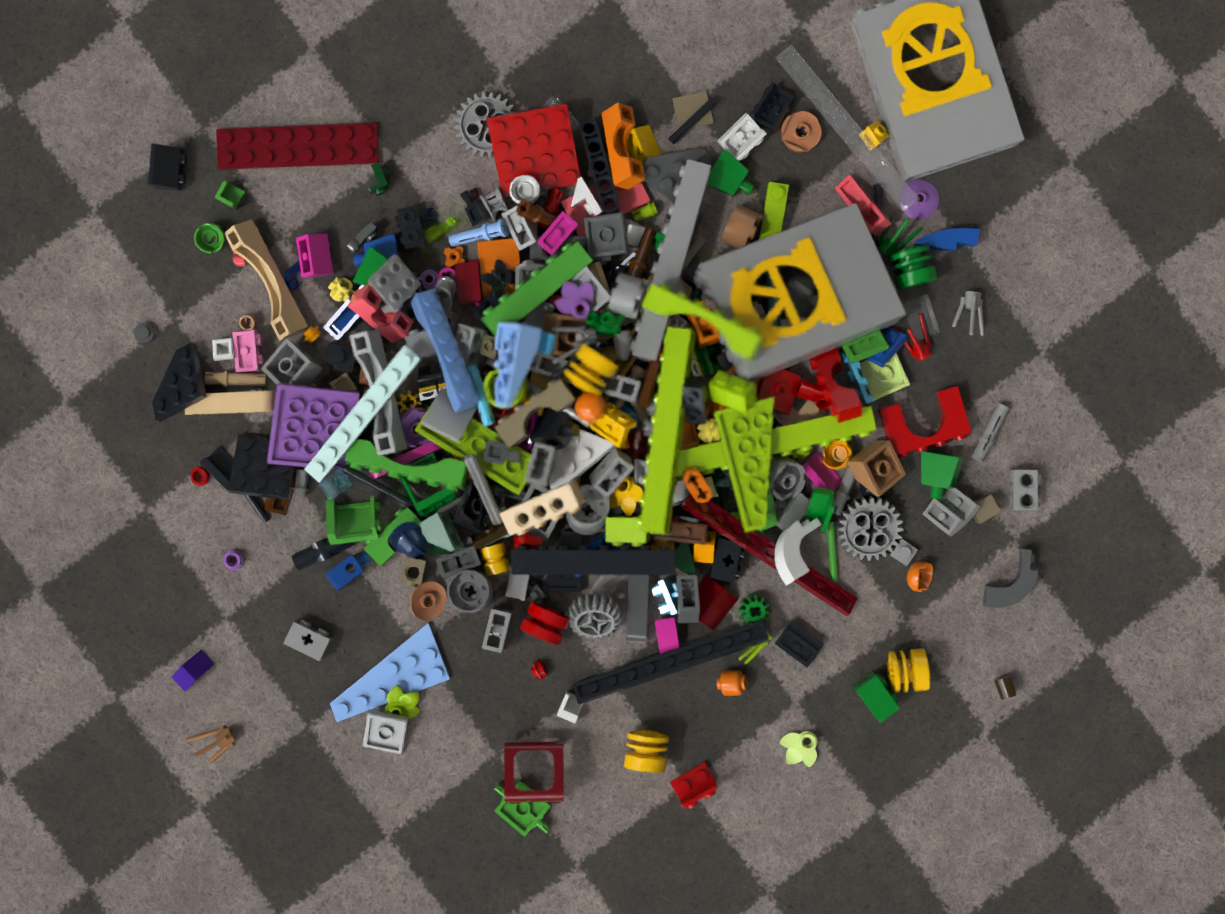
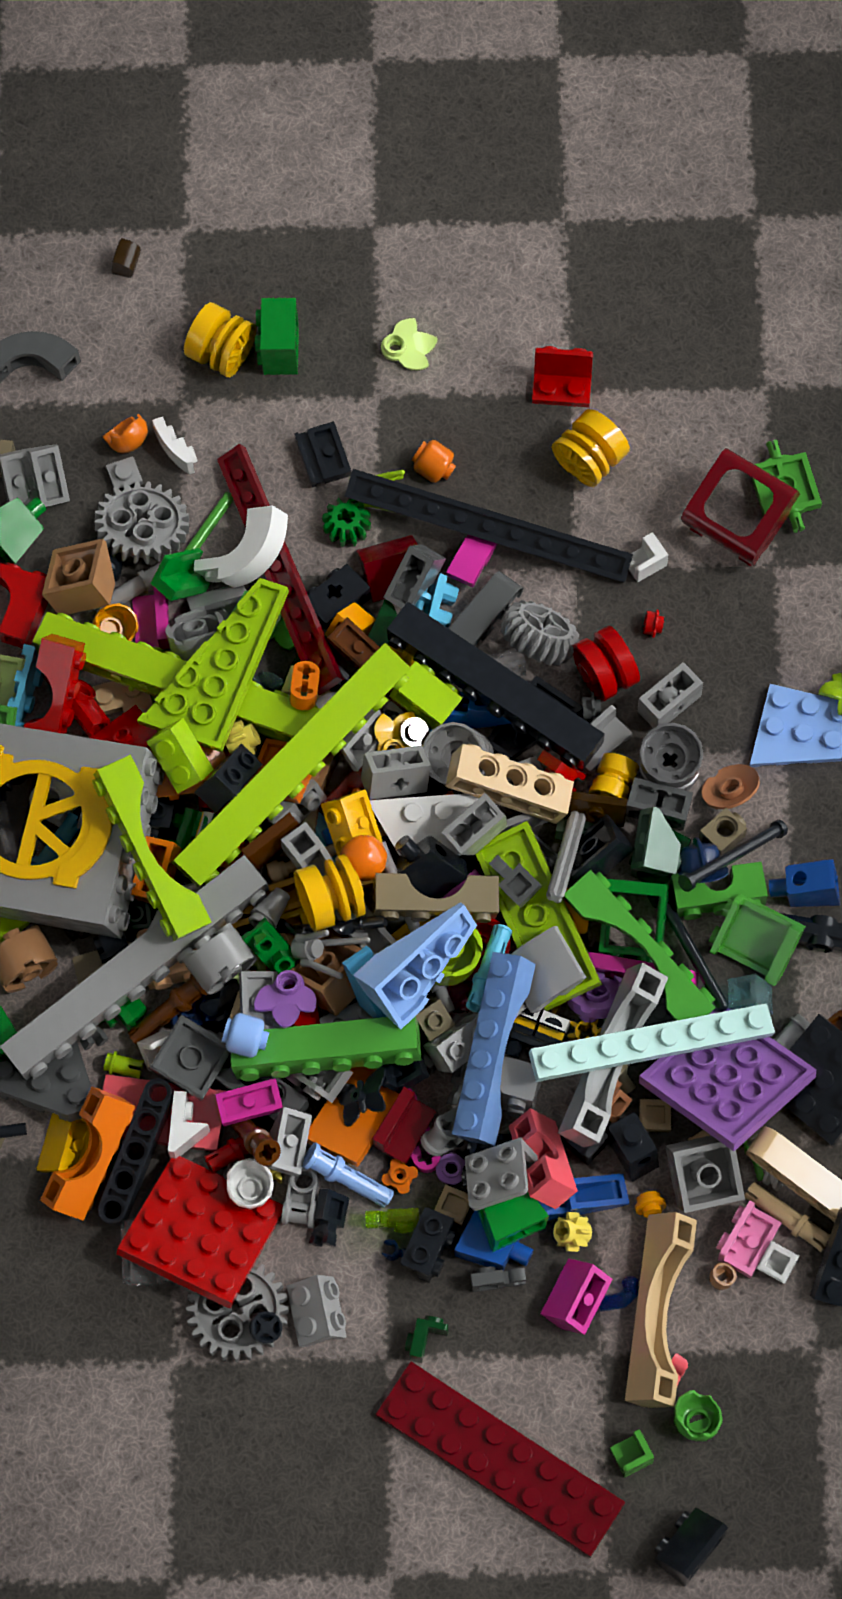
camera: 140 degrees left, 20 degrees down
(404, 519) = (689, 880): none -> black bar
(415, 261) = (453, 1204): none -> tan tile
(445, 154) = (316, 1310): none -> light grey bracket
(460, 117) = (268, 1329): none -> black wheel
(580, 260) = (245, 1035): none -> light blue head
(618, 503) = (413, 732): none -> plate
(879, 586) = (175, 448): none -> white slope

